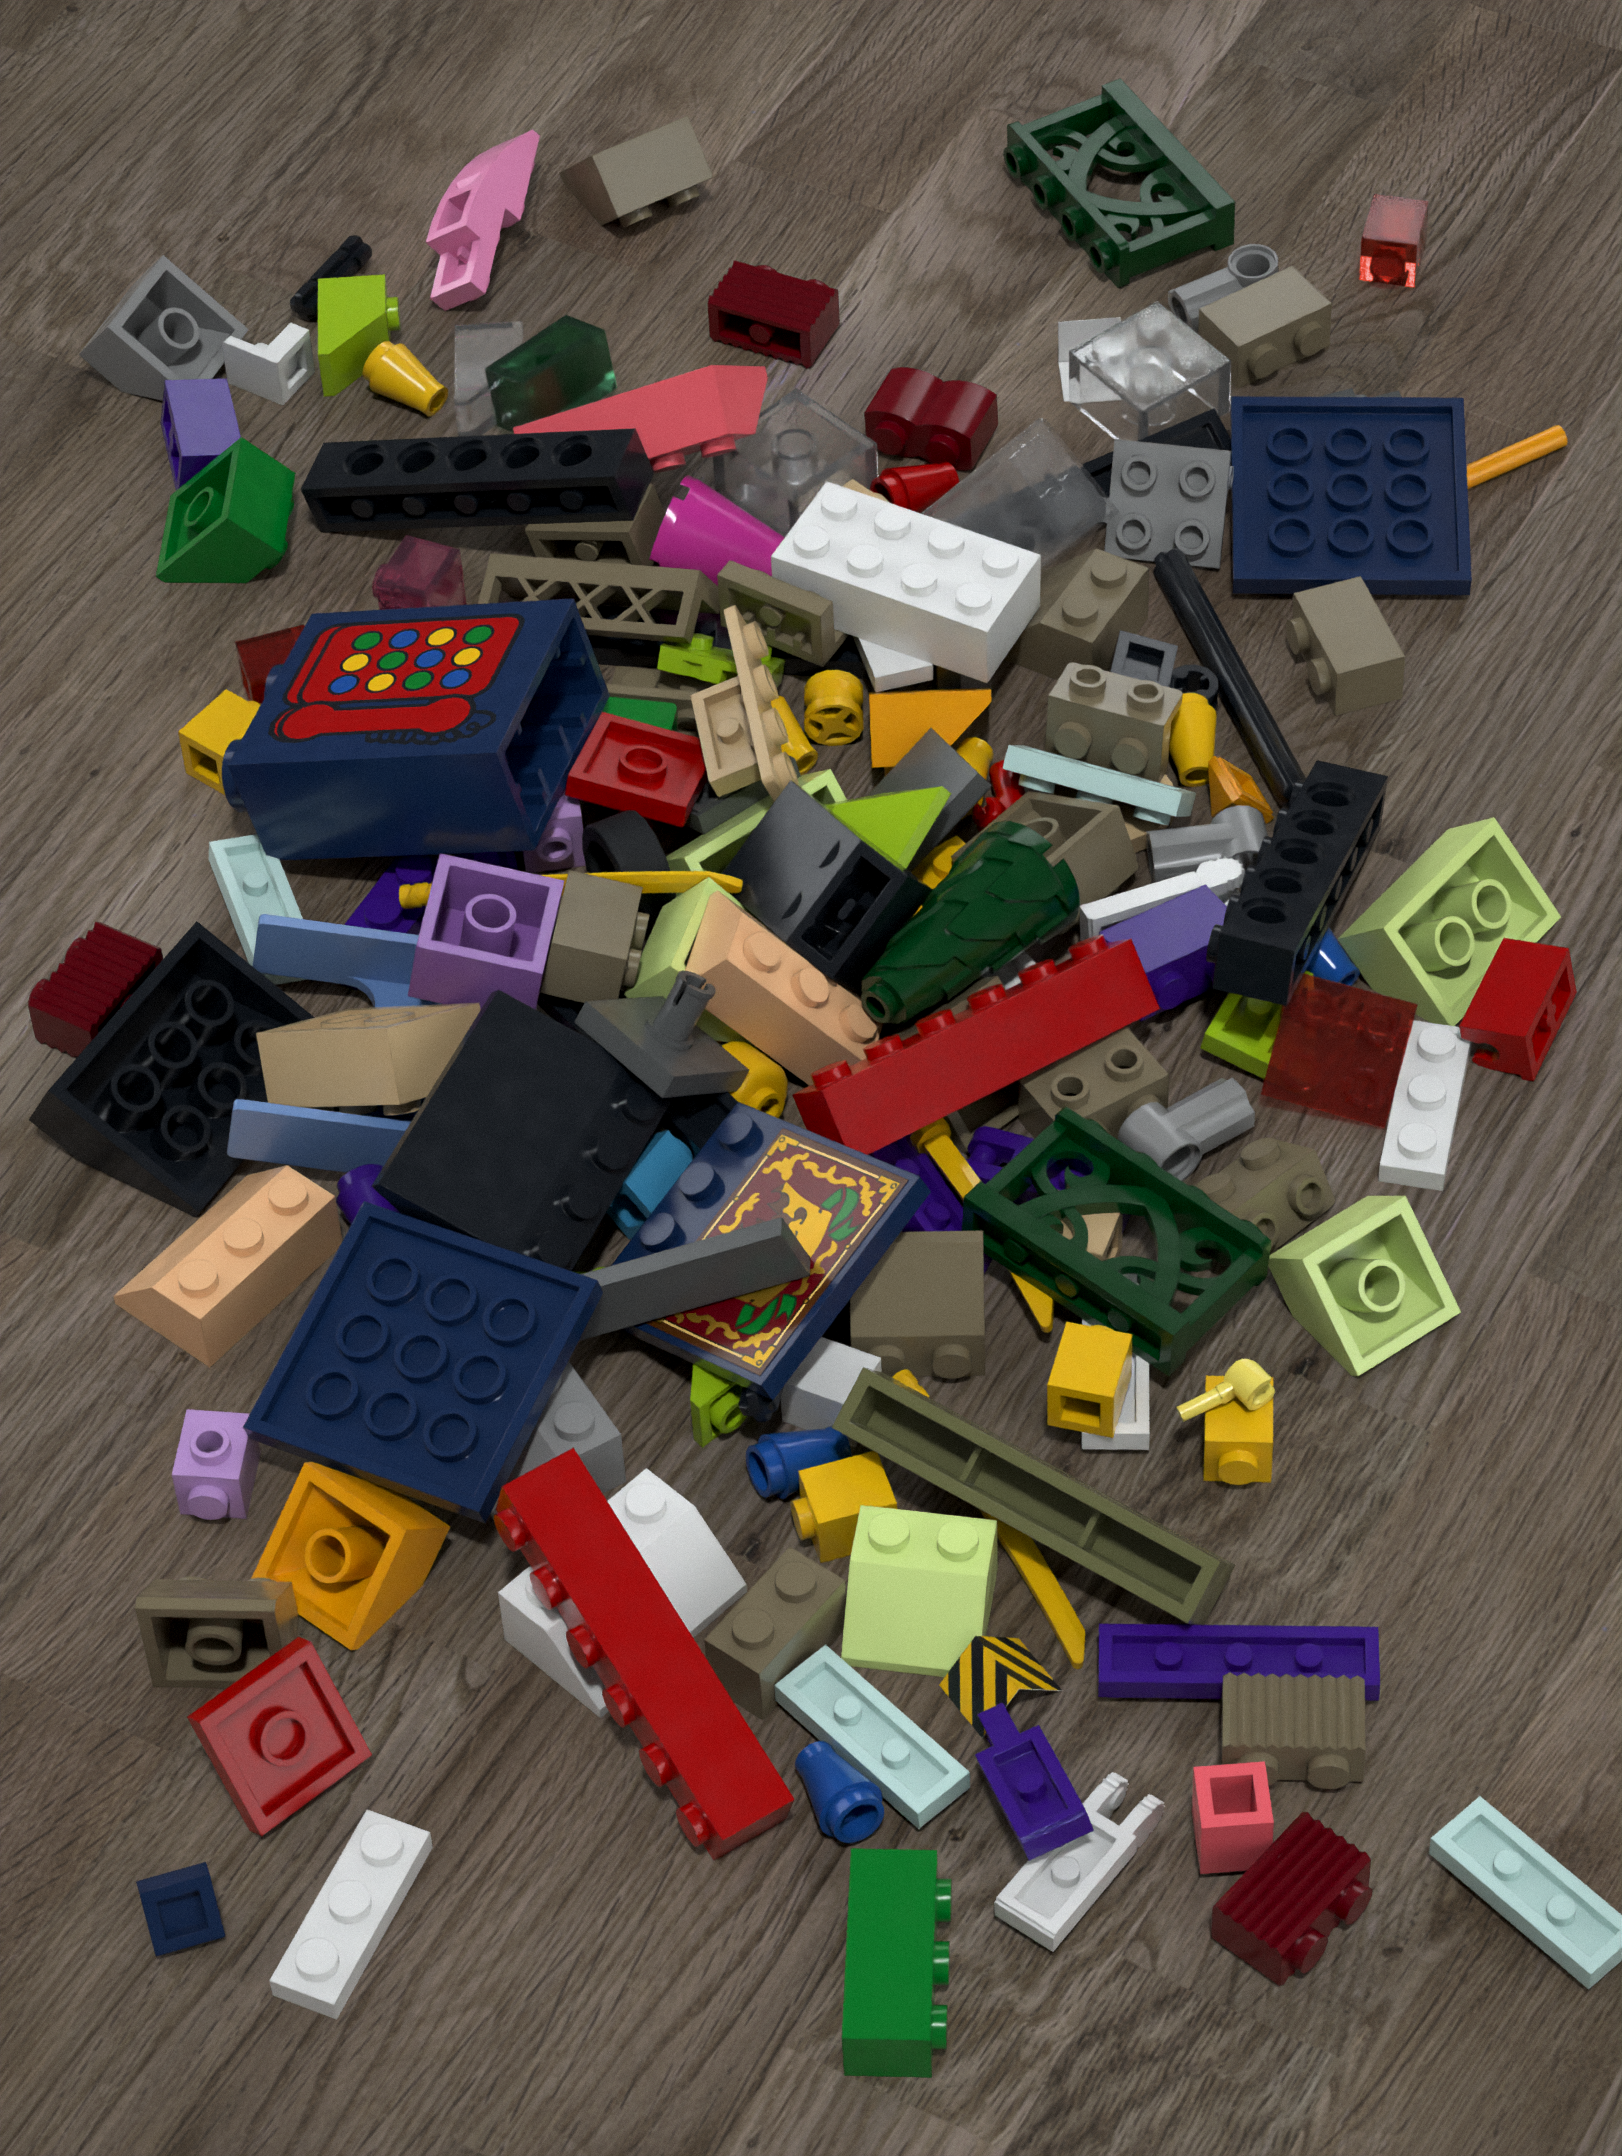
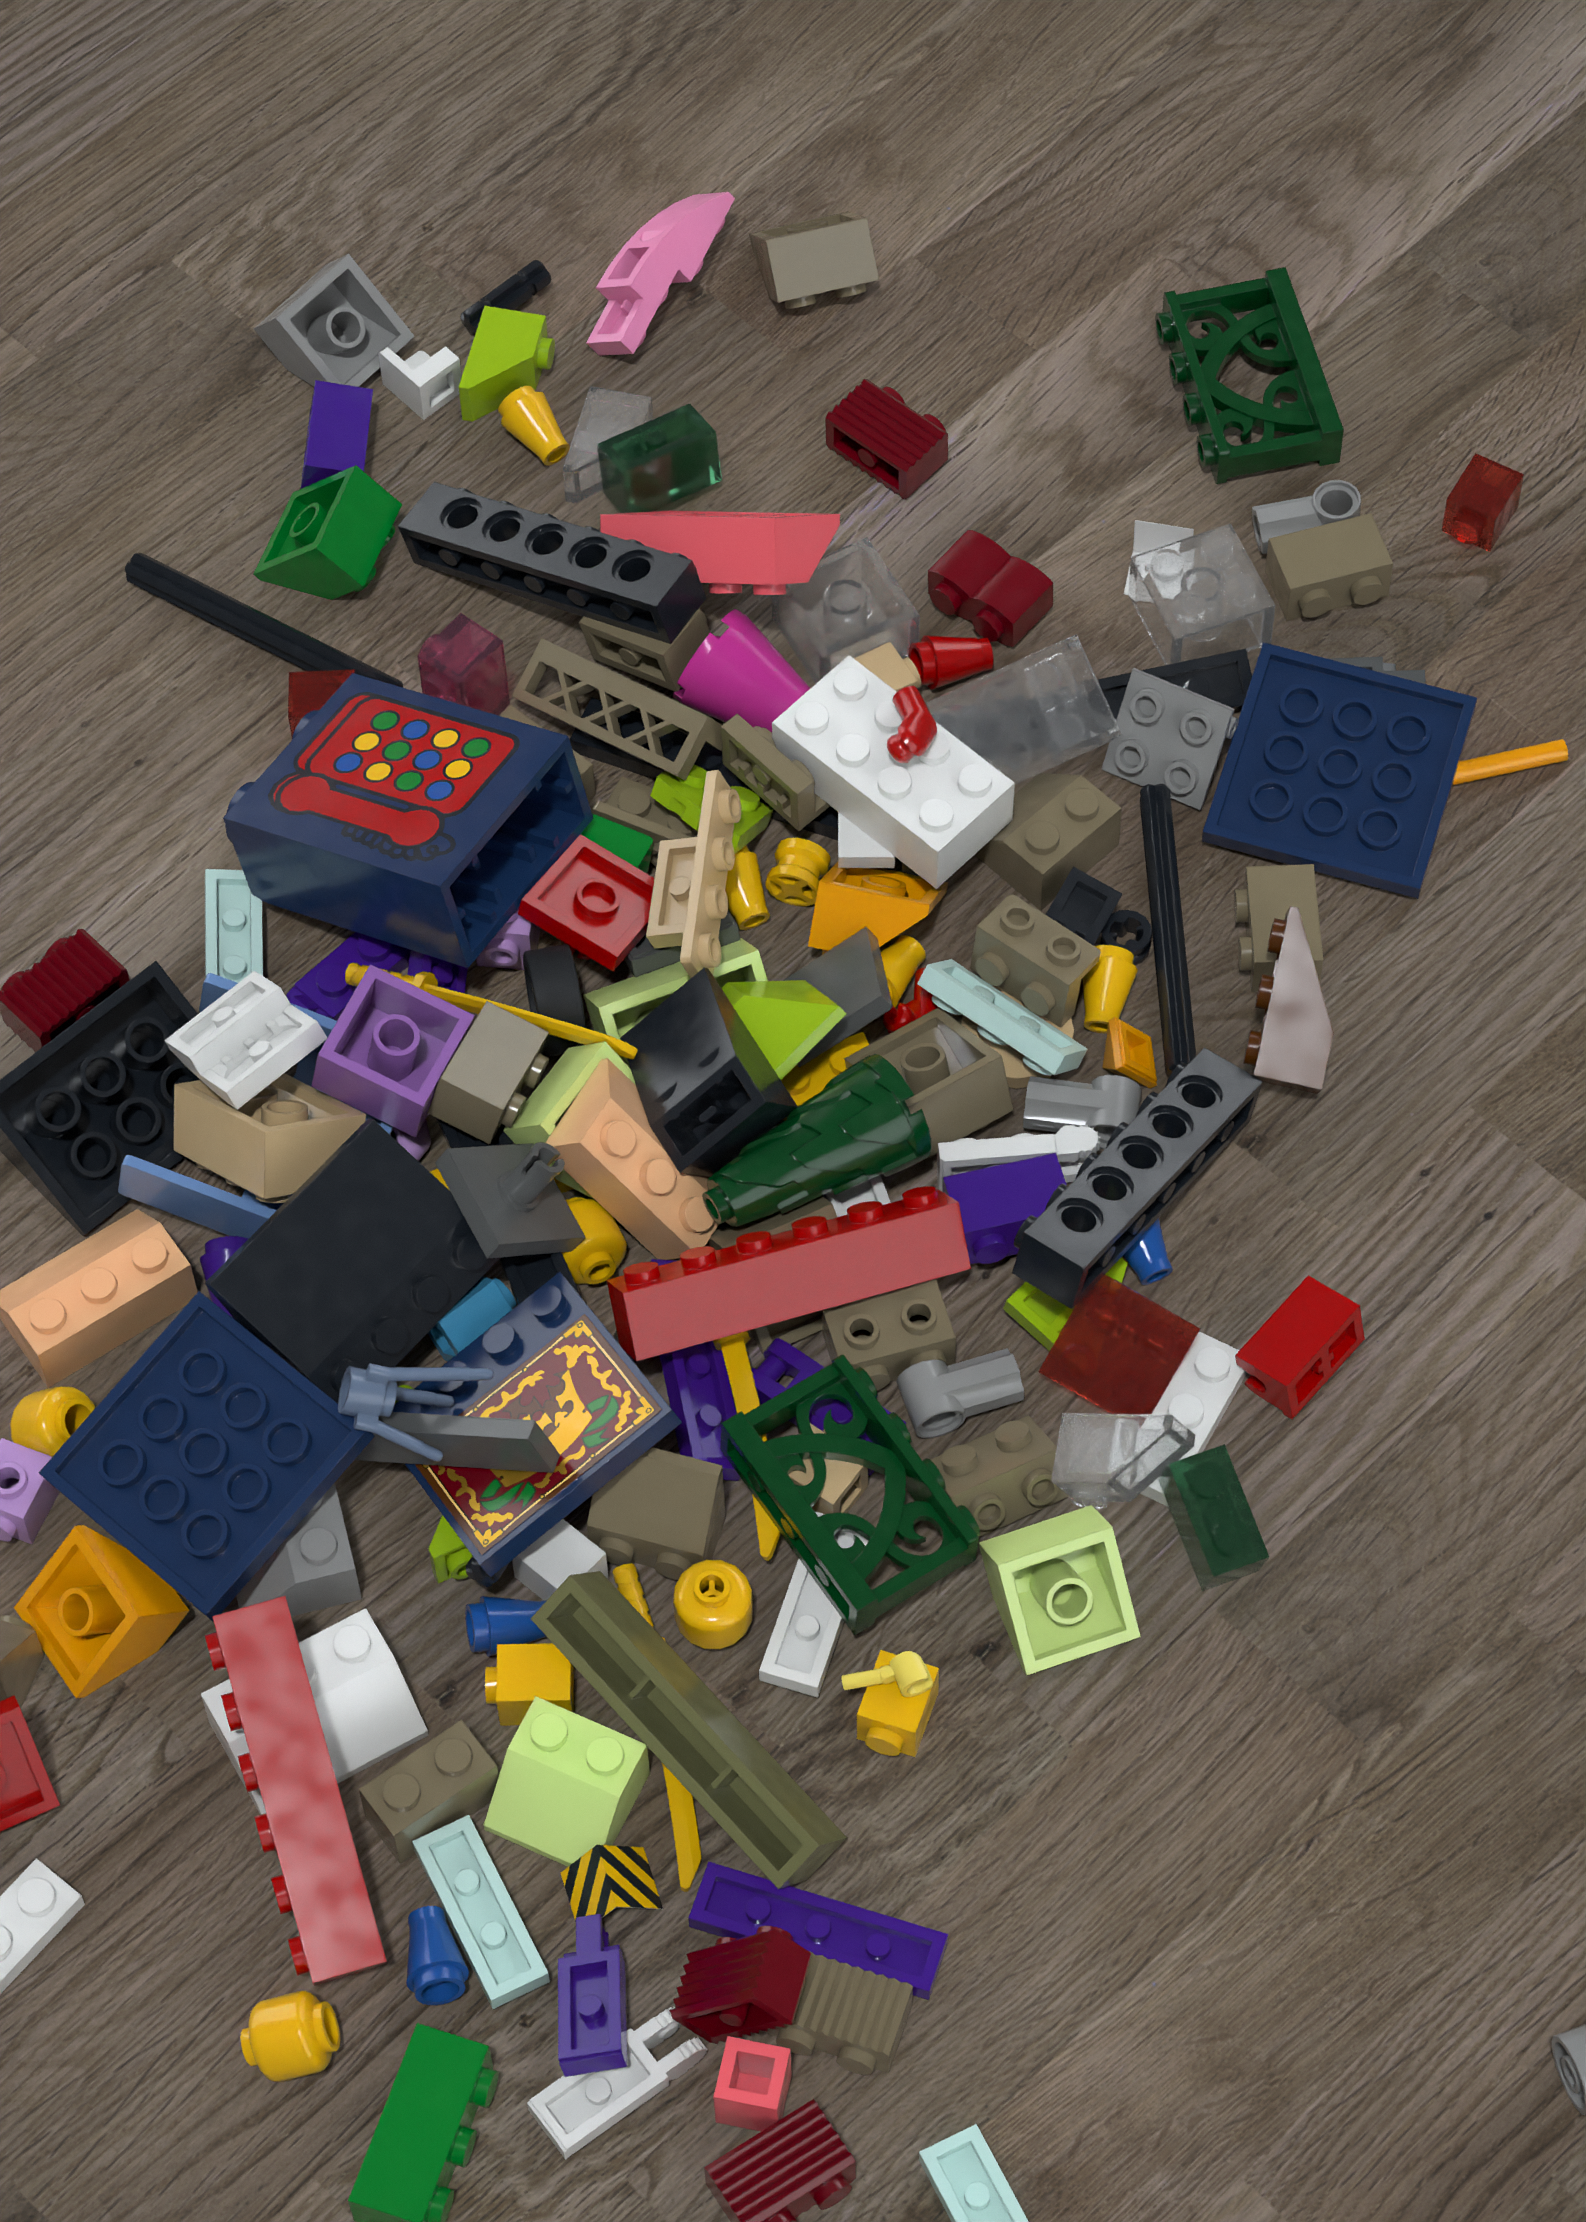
camera: 15 degrees right, 10 degrees up
(143, 614) = (243, 619): none -> black axle
(210, 733) = (247, 756): yellow brick -> none
(232, 1378) = (49, 1418): none -> yellow head
(326, 962) = (246, 1039): none -> white slope
(591, 1245) = (374, 1390): none -> sand blue plant
(713, 1906) = (290, 2036): none -> yellow head
(926, 516) = (916, 729): none -> red arm
(1008, 1382) = (713, 1604): none -> yellow head
(1089, 1379) = (777, 1625): yellow brick -> none
(1185, 1722) = (742, 1985): none -> dark red brick
(1377, 1138) = (1115, 1454): none -> clear slope
(1399, 712) = (1296, 1025): none -> slope
(1446, 919) = (1265, 1239): yellowish green slope -> none
(1498, 1175) = (1213, 1517): none -> clear green brick

